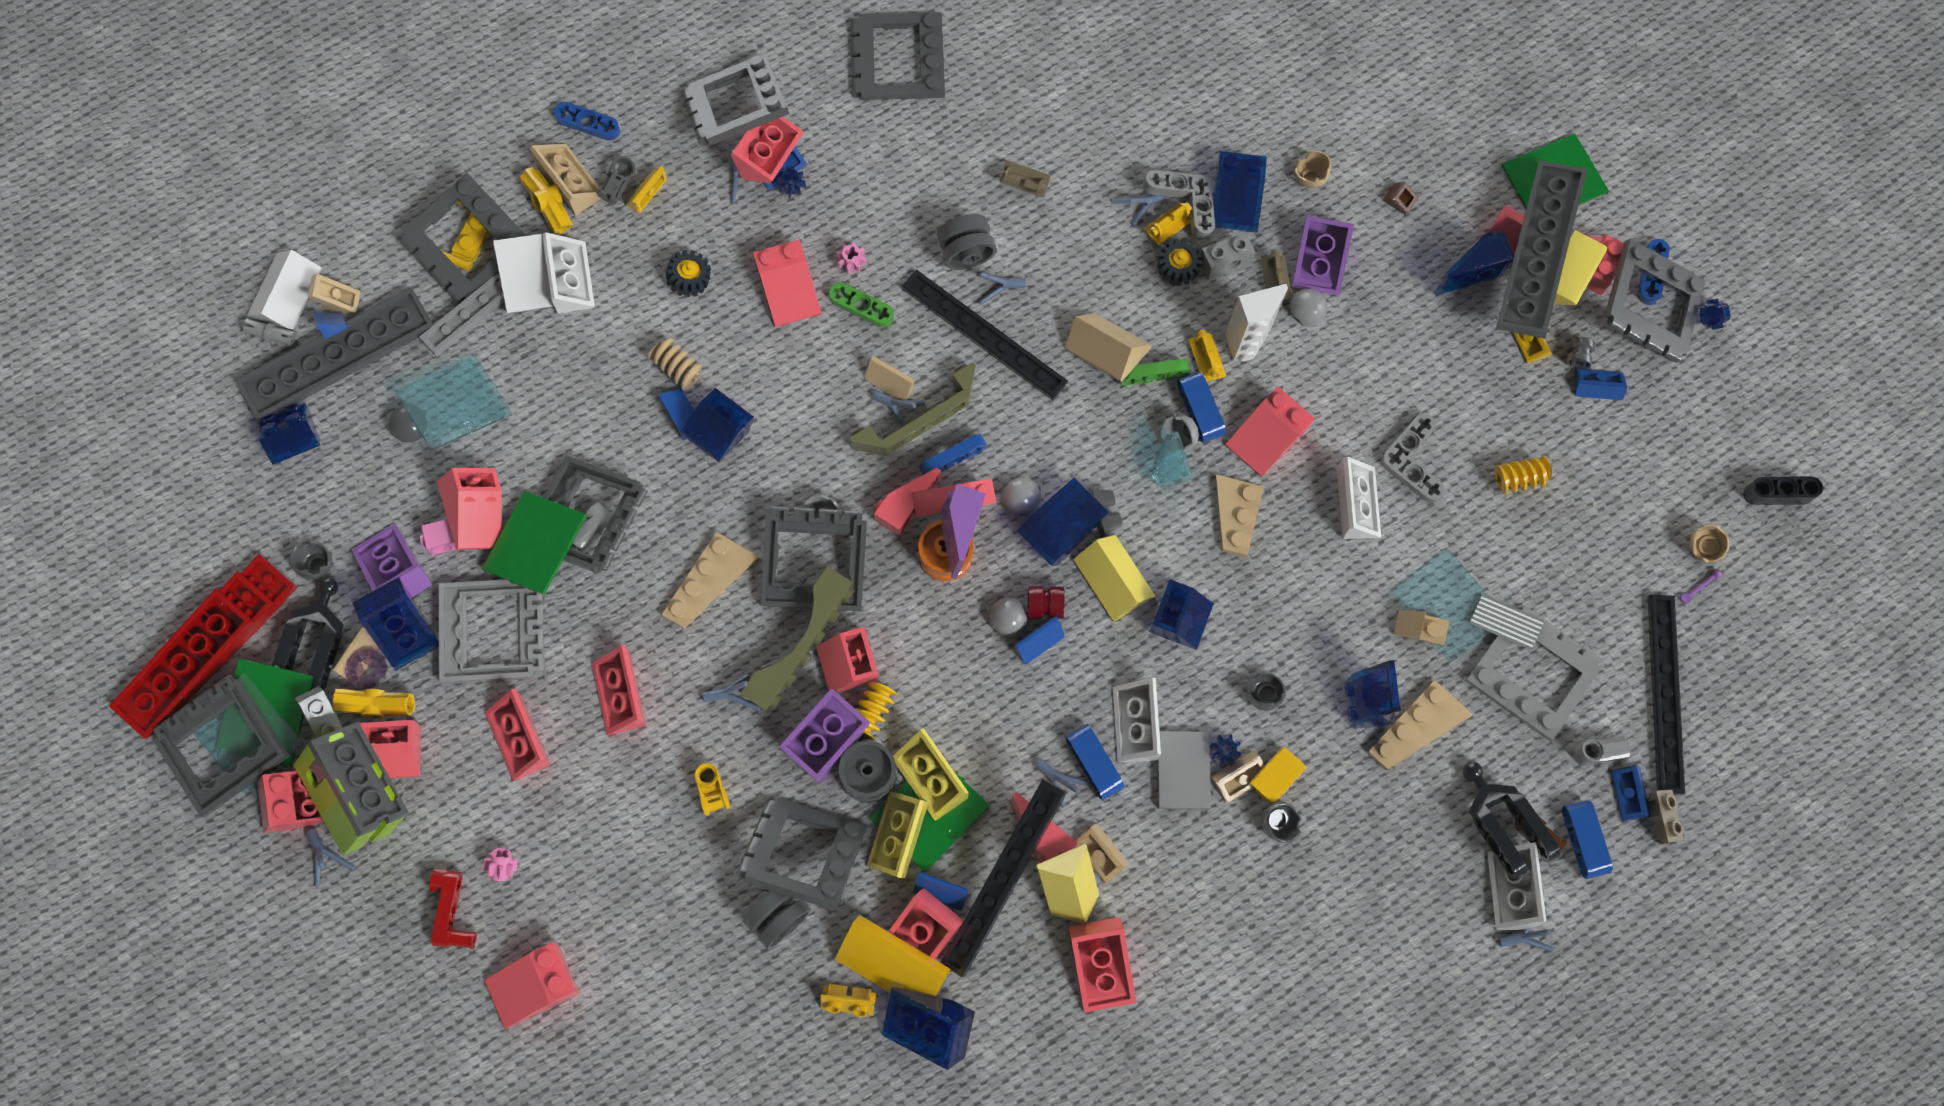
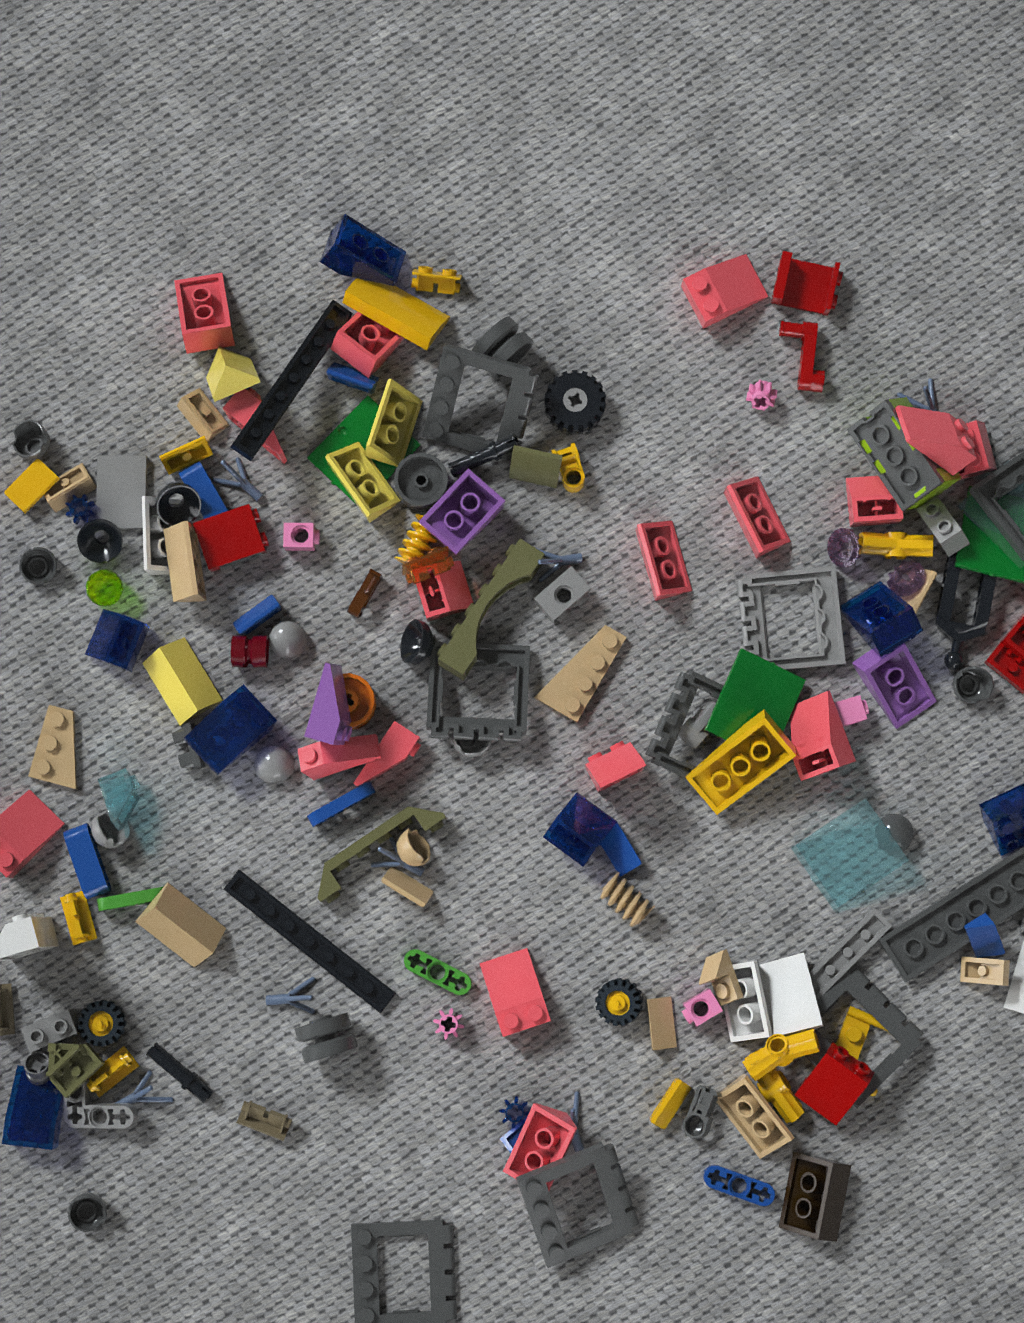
camera: 175 degrees left, 10 degrees up
(310, 797) = (937, 437): none -> coral slope
(428, 689) = (836, 545): none -> clear purple gear
(439, 991) = (806, 285): none -> red panel
(486, 193) = (835, 1083): none -> red panel
(517, 108) = (815, 1197): none -> dark brown slope
(520, 223) = (792, 1047): none -> yellow piece
(549, 484) = (741, 762): none -> yellow slope
(588, 293) = (720, 972): none -> tan slope
(602, 262) = (708, 998): none -> bright pink brick
(650, 257) = (661, 1023): none -> tan slope
(678, 479) = (614, 766): none -> coral slope
(714, 865) = (570, 414): none -> black wheel
(717, 669) = (570, 582): none -> light grey brick
(746, 785) = (535, 466): none -> olive slope
(790, 803) = (493, 451): none -> black pin
(871, 674) = (417, 568): none -> clear orange hinge
(876, 608) = (416, 642): none -> black piece
(882, 412) = (413, 848): none -> tan hair
(928, 661) = (365, 593): none -> reddish brown piece
(1005, 712) = (293, 529): none -> bright pink brick
(1067, 717) = (230, 536): none -> red panel
(1104, 220) = (180, 1073): none -> black pin
(1114, 689) = (184, 563): none -> tan slope
(1115, 804) = (186, 455): none -> yellow slope
(1119, 741) = (184, 511): none -> black piece
(1185, 106) = (81, 1212): none -> dark grey hair
(1202, 668) = (104, 587): none -> clear neon green hair
(1203, 708) = (94, 549): none -> black piece
(1205, 221) = (71, 1066): none -> olive slope
(1241, 222) = (36, 1062): none -> flat silver wheel

